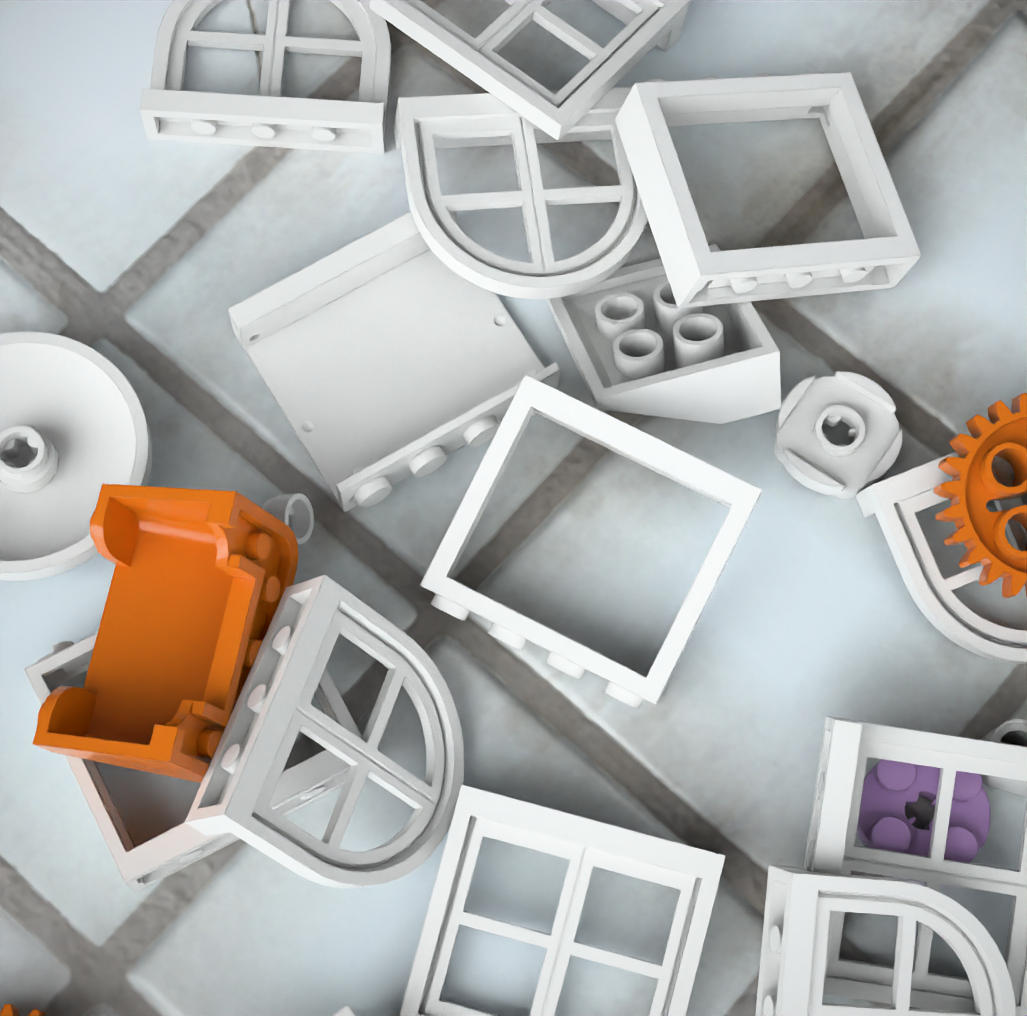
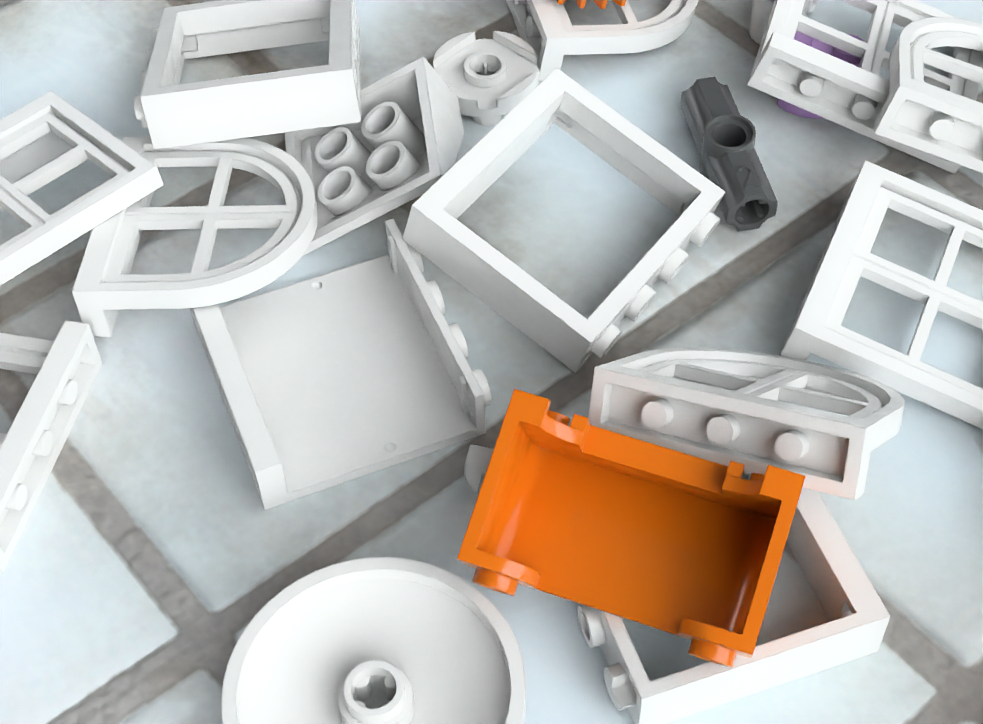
camera: 75 degrees left, 20 degrees down
(782, 693) = (728, 153): none -> dark grey piece

